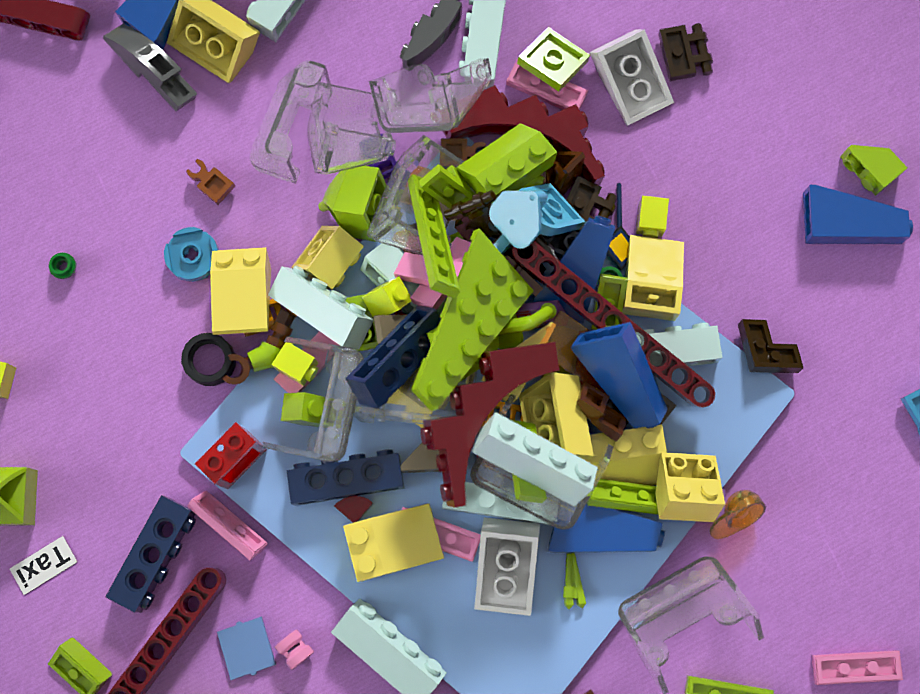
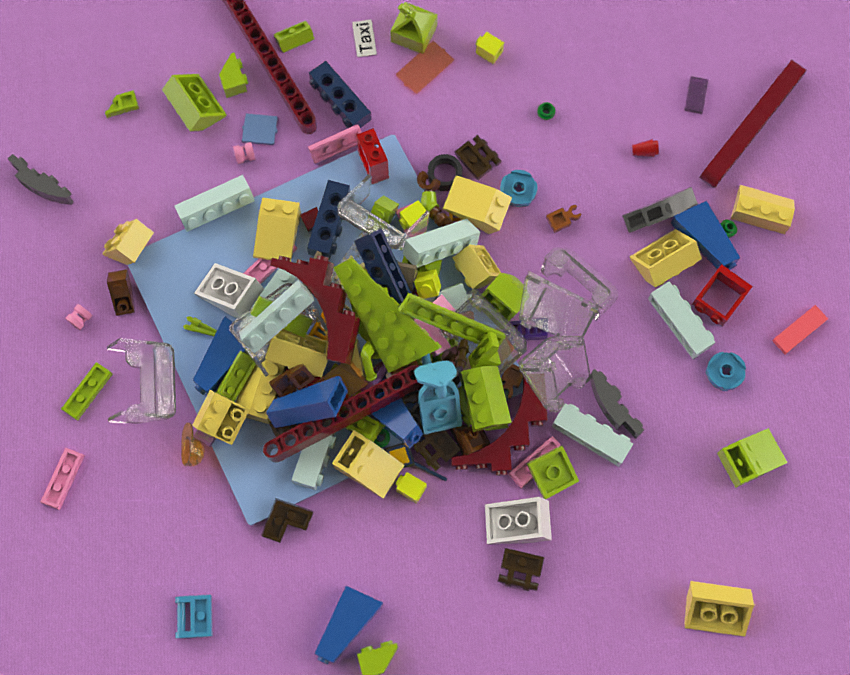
camera: 110 degrees right, 5 degrees down
(57, 458) = (424, 67): none -> clear orange piece
(67, 115) = (647, 148): none -> red cone
(173, 330) = (473, 160): none -> dark brown plate

